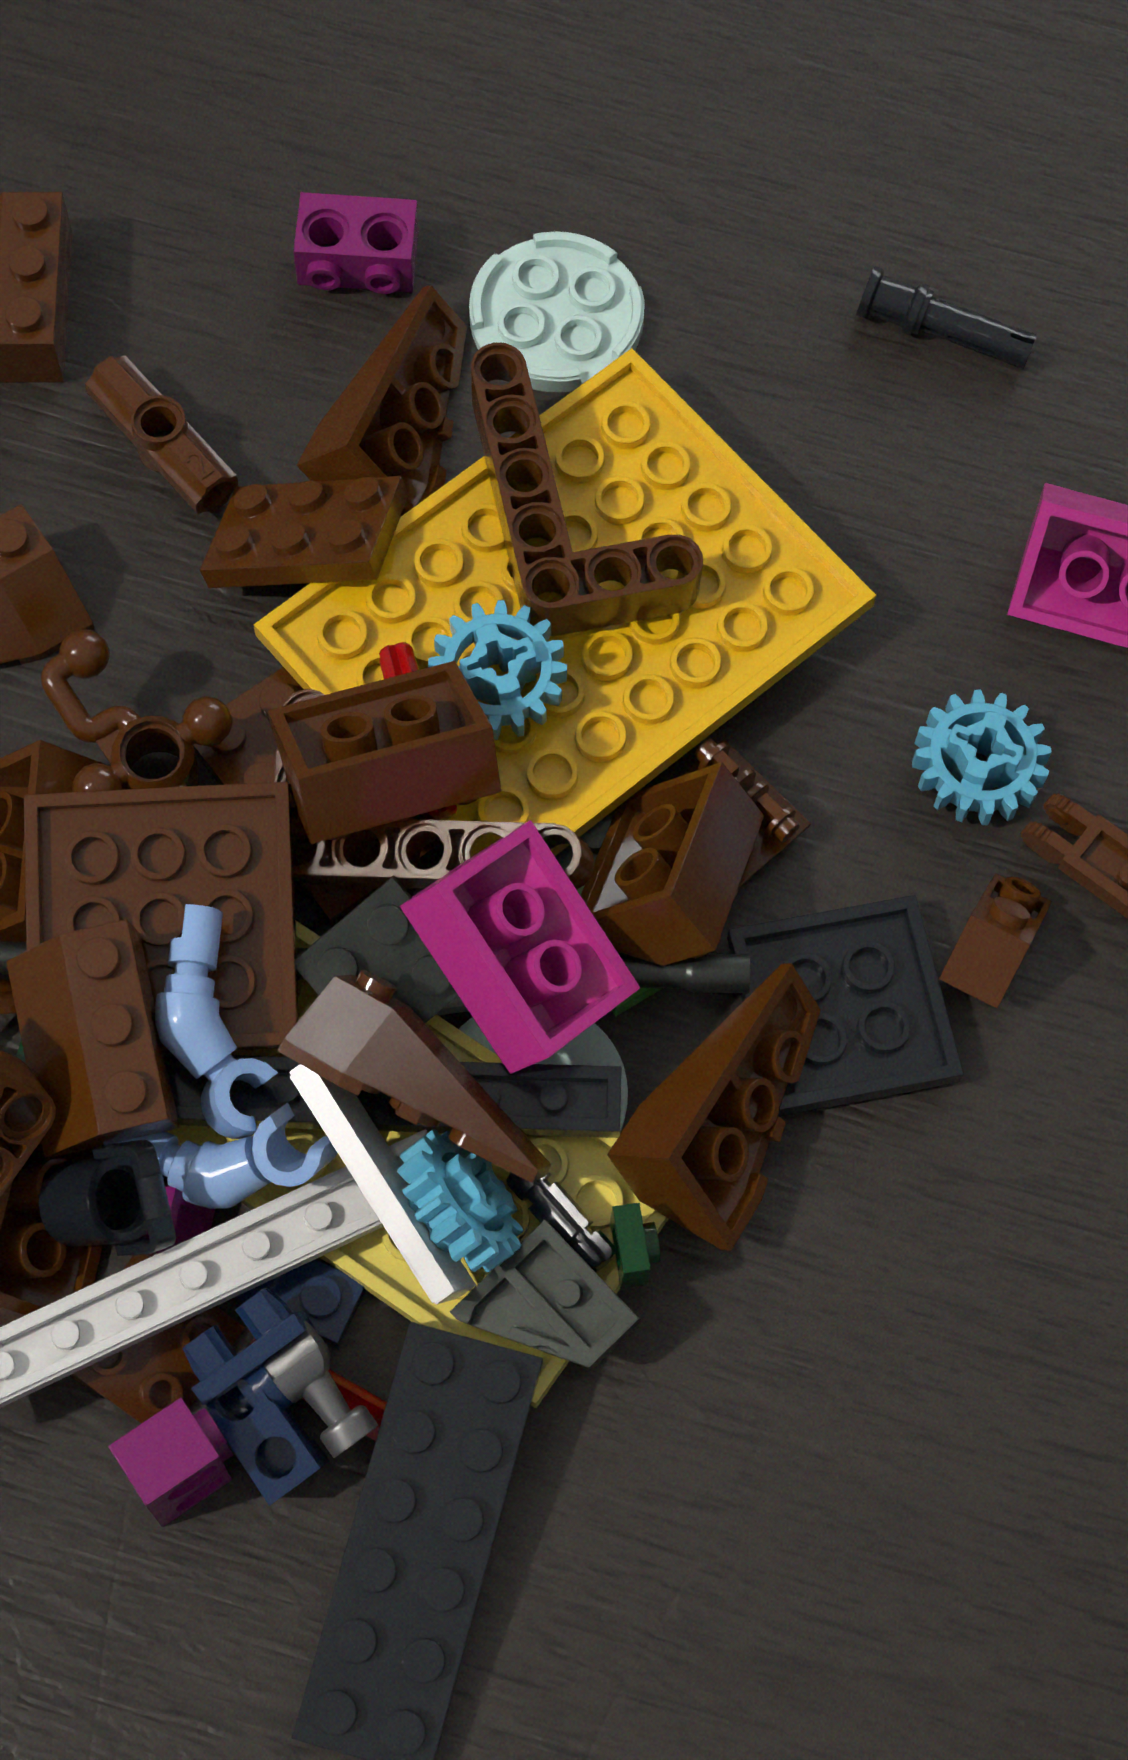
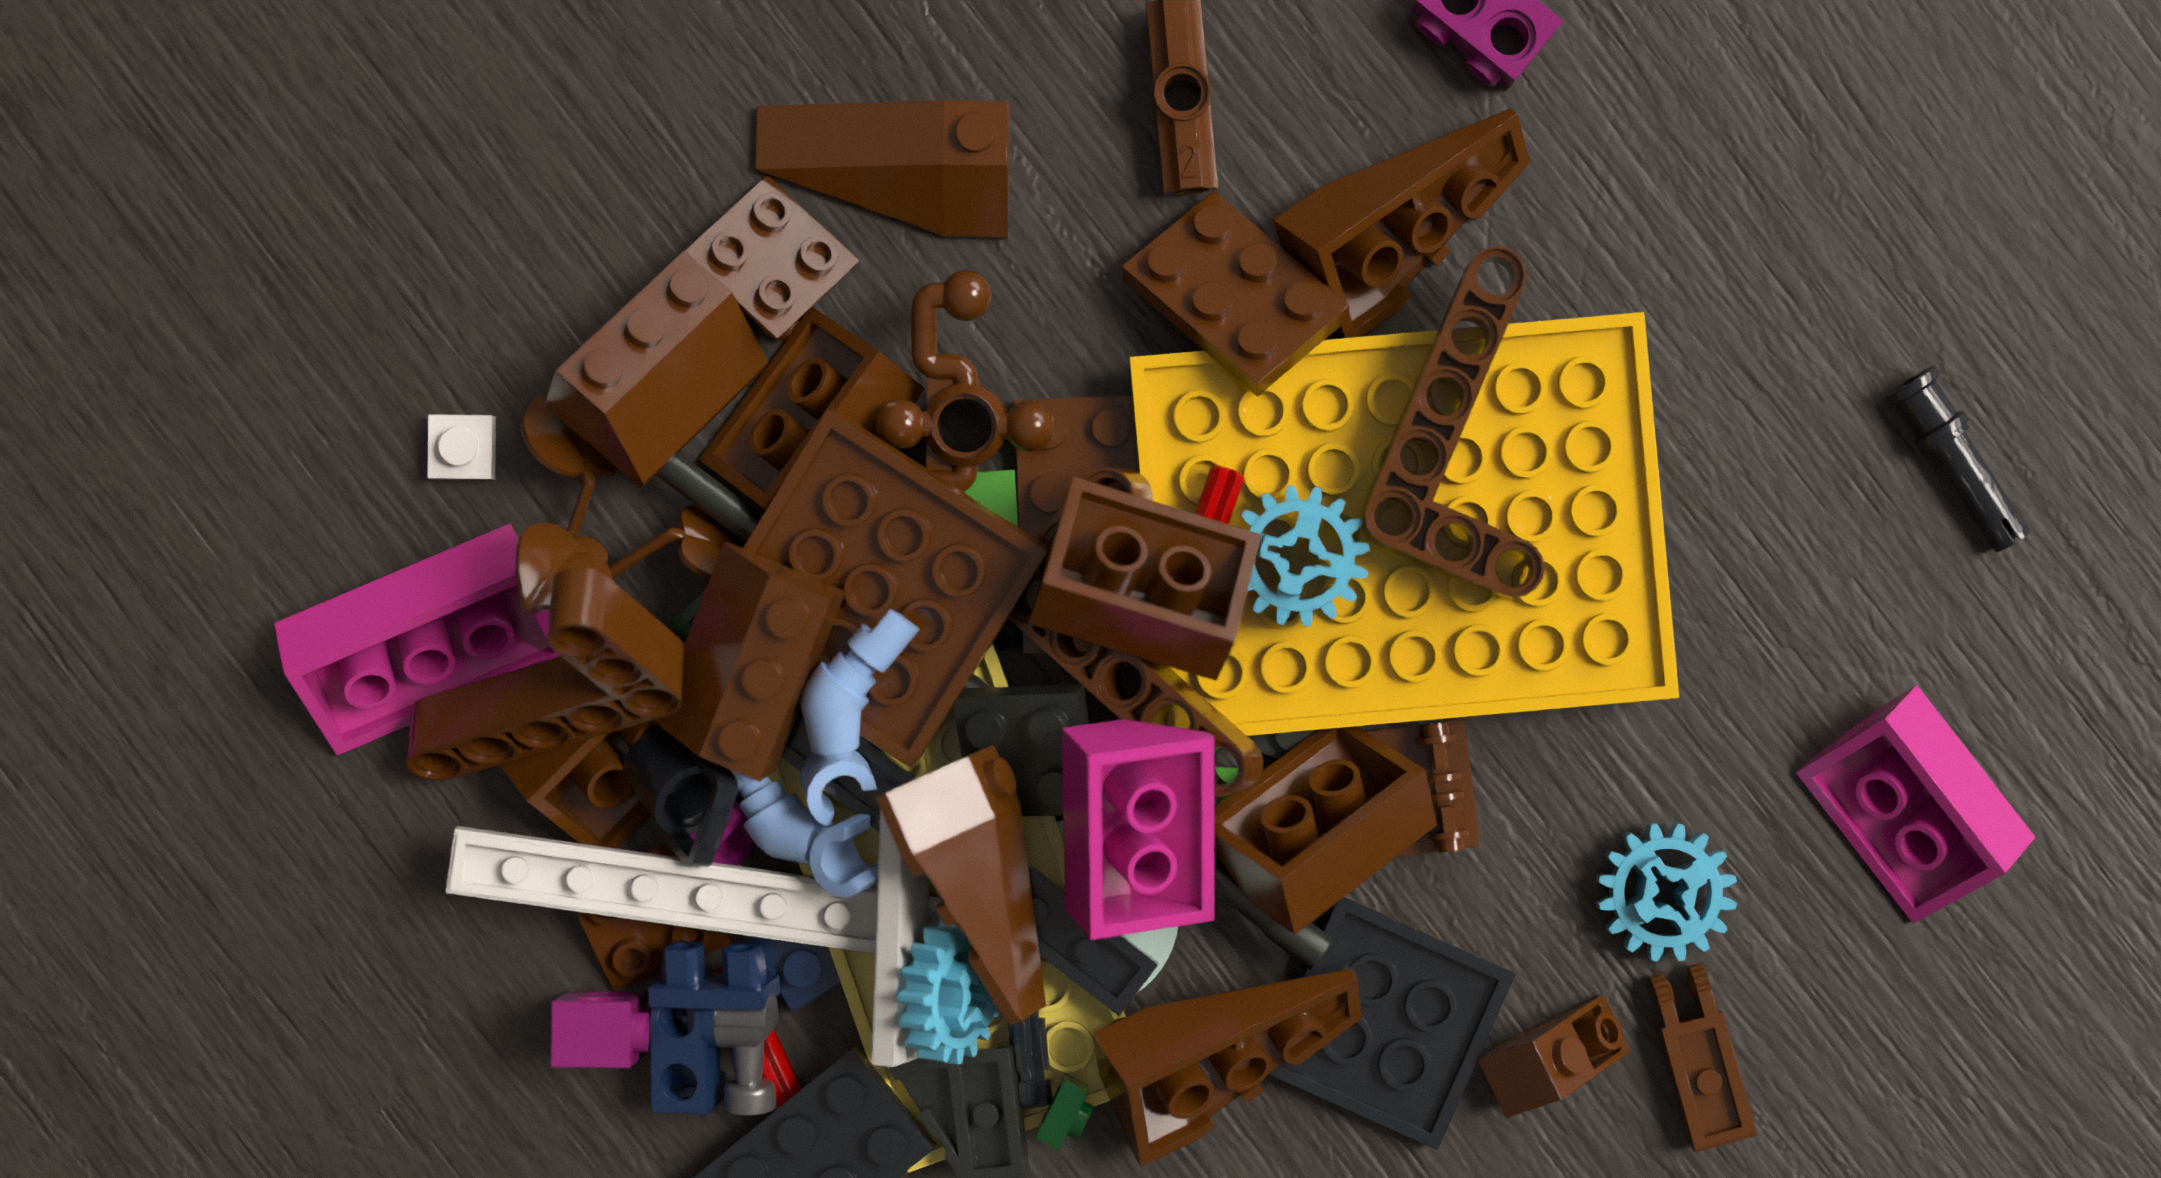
camera: 45 degrees right, 20 degrees up
(560, 305) = (1620, 203): light aqua tile -> none

